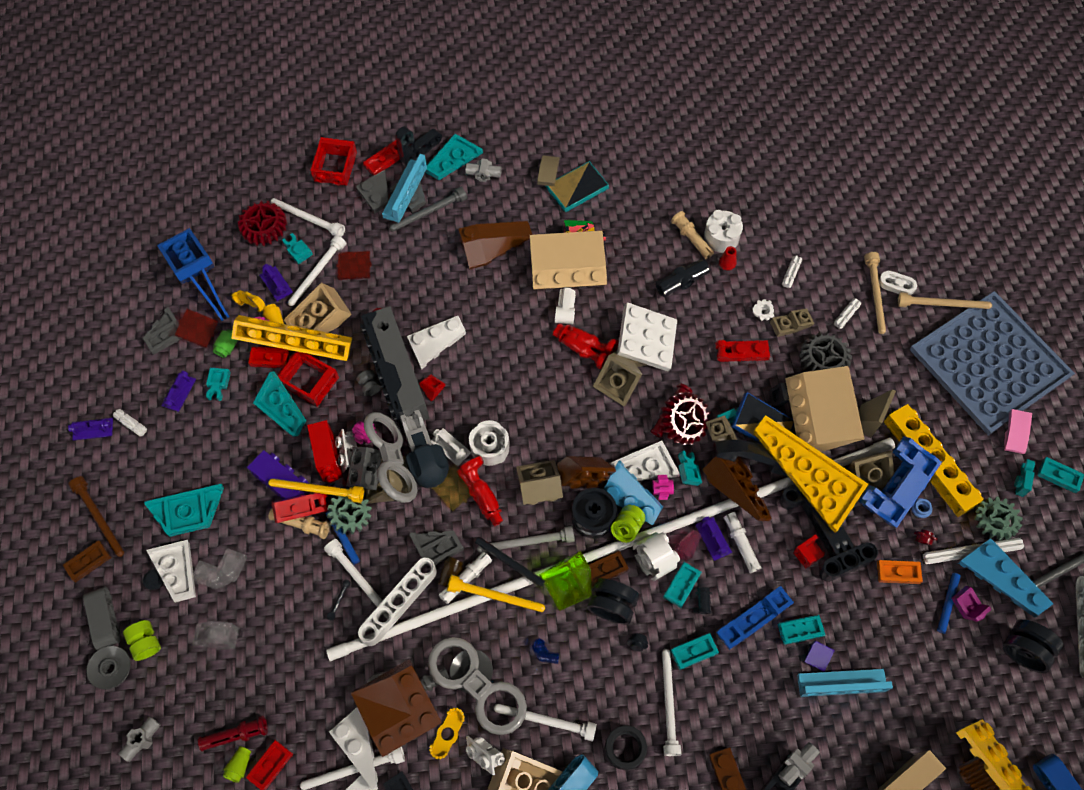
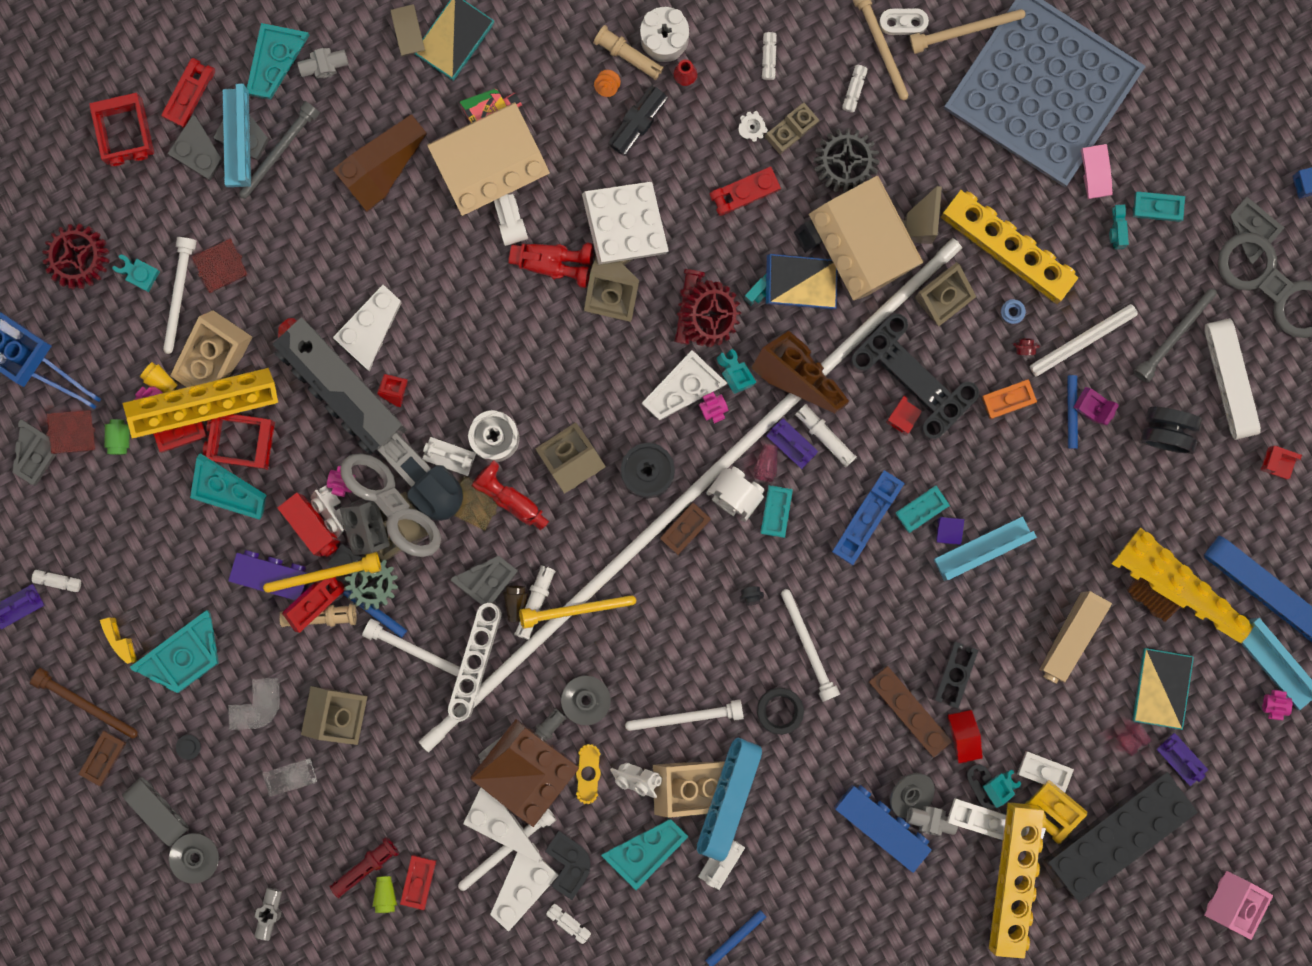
camera: 20 degrees left, 20 degrees up
(141, 640) = (214, 816): lime wheel -> none
(147, 484) = (123, 647): none -> yellow slope
(175, 569) = (208, 726): white wing -> none
(178, 391) = (93, 520): dark purple hinge -> none
(217, 380) = (133, 487): teal plate -> none
(242, 297) = (103, 369): yellow piece -> none
(272, 601) = (334, 715): none -> dark tan slope
(275, 282) = (135, 331): dark purple hinge -> none
(331, 615) = (405, 703): black hinge -> none
(334, 228) = (173, 226): white piece -> none
(369, 384) = (316, 417): dark grey wheel -> none
(411, 150) = (215, 74): black beam -> none
(477, 686) = (599, 713): light grey bar -> none
(510, 562) = (577, 565): black bar -> none
(542, 652) = (654, 649): clear blue arm -> none
(565, 535) = (625, 508): light grey piece -> none
(569, 581) = (651, 560): clear neon green slope -> none
(584, 471) = (618, 427): reddish brown slope -> none
(613, 601) = (708, 564): black wheel -> none
(628, 491) = (680, 432): dark azure wing -> none
(628, 523) = (691, 468): lime wheel -> none
(670, 247) = (607, 83): none -> orange wheel
(694, 651) = (816, 580): teal plate -> none
(704, 605) = (806, 520): black pin -> none
(720, 429) = (762, 317): dark tan slope -> none
(733, 448) = (801, 326): black slope -> none
(799, 764) = (963, 657): light grey axle -> none
(820, 479) = (889, 330): yellow wing -> none
(905, 484) = (985, 296): blue bracket -> none
(996, 568) = (1117, 357): dark azure wing -> none
(998, 518) = (1094, 284): sand green gear -> none

